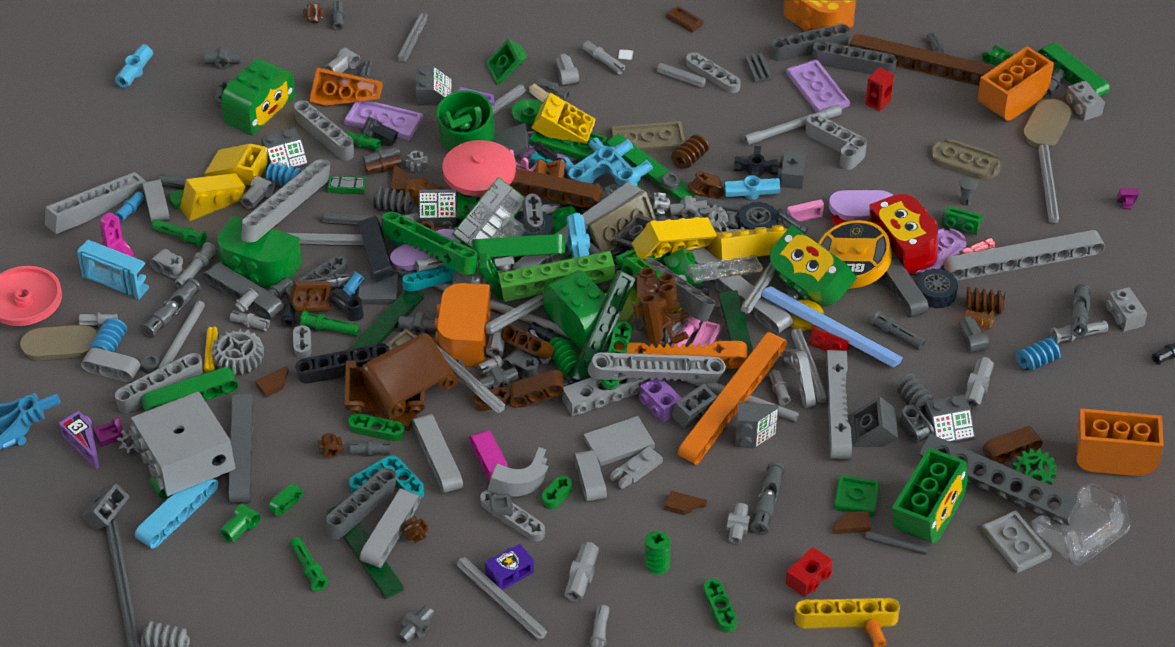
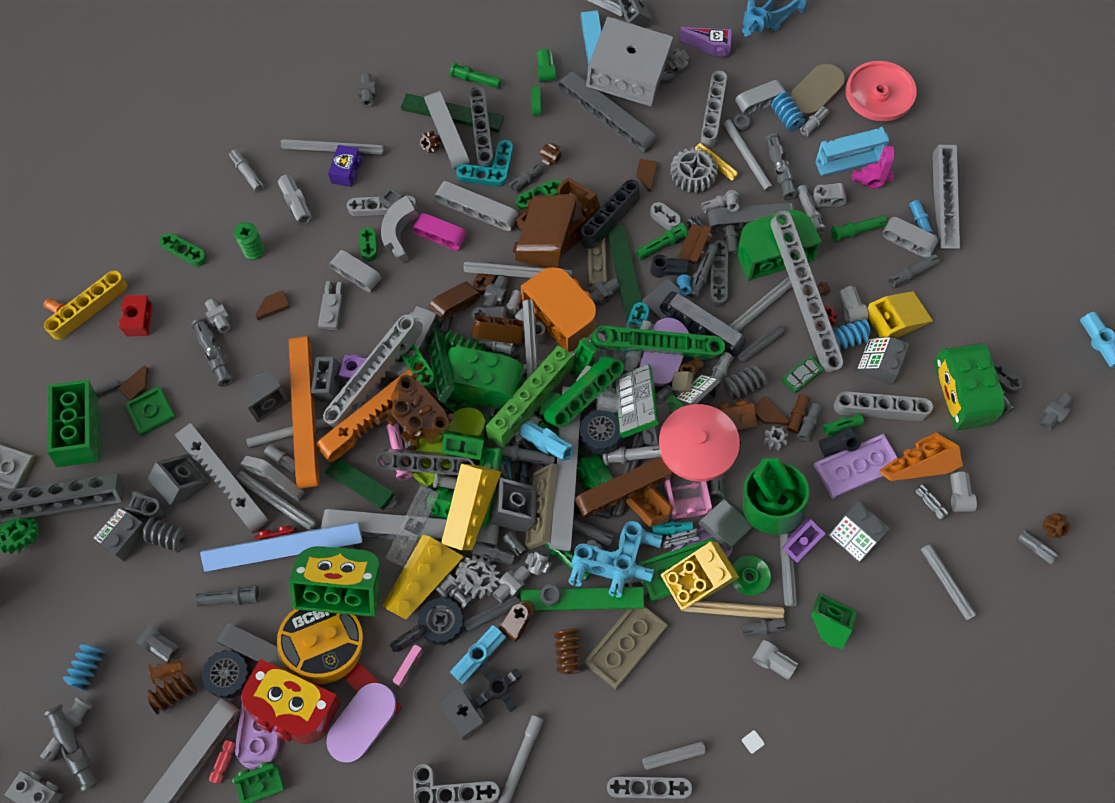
camera: 140 degrees right, 20 degrees up
(109, 432) = (701, 61): magenta tile -> none
(176, 198) = (900, 256): green tile -> none
(209, 385) = (686, 119): green beam -> none
(210, 194) = (877, 270): yellow wedge -> none
(440, 218) = (682, 381): none -> dark tan tile
(536, 212) = (607, 424): dark grey beam -> none
(598, 53) = (763, 711): light grey axle -> none
(619, 440) = (363, 317): light grey tile -> none
(707, 333) = (380, 474): bright pink tile -> none
(758, 289) = (368, 532): light grey axle -> none
(978, 383) = (120, 592): light grey piece -> none
(1010, 445) = (51, 550): reddish brown beam -> none

